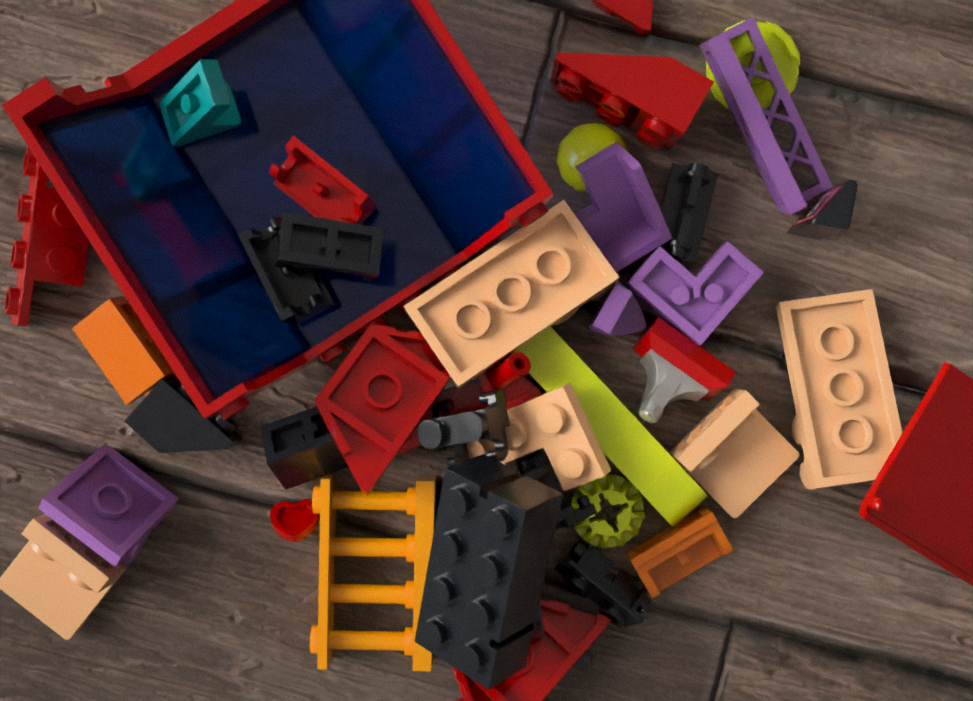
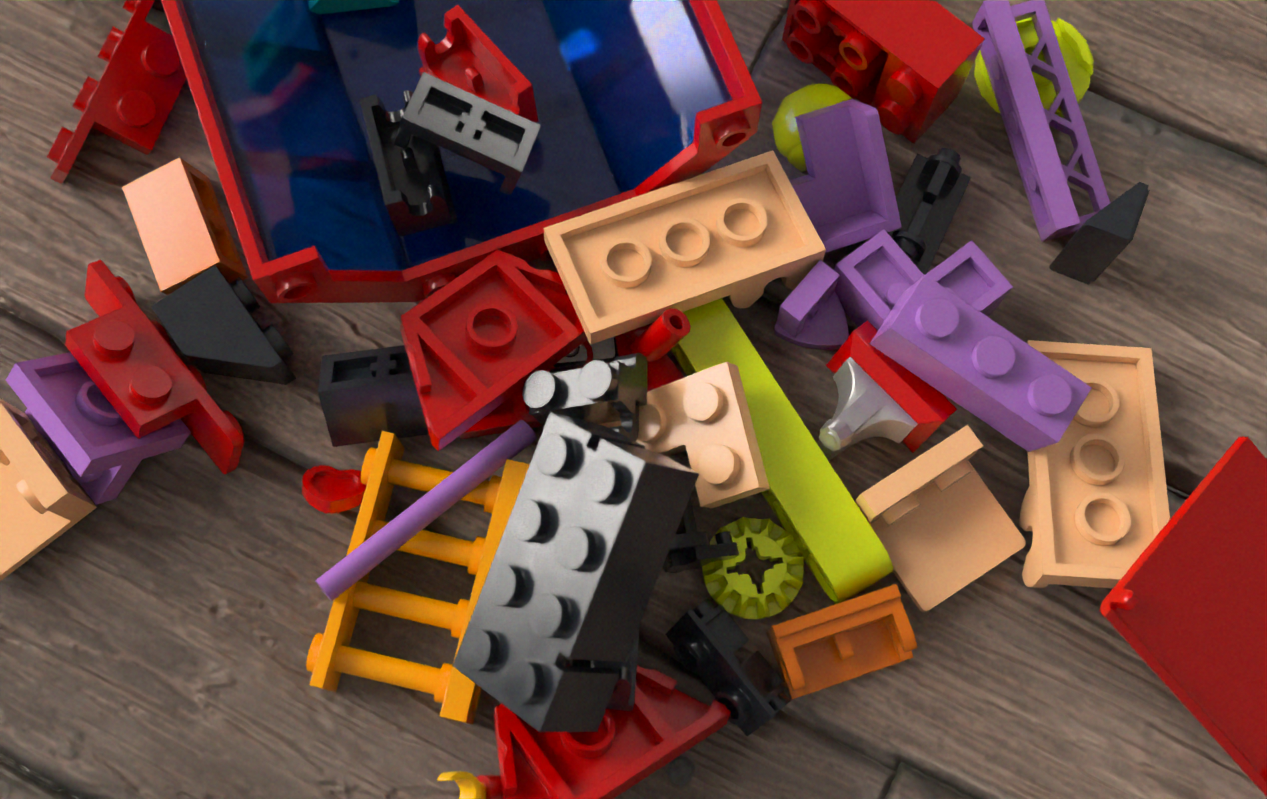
camera: 15 degrees right, 15 degrees down
(130, 470) = (142, 373): none -> red bracket
(367, 529) = (425, 510): none -> medium lavender bar
(749, 348) = (980, 365): none -> medium lavender brick

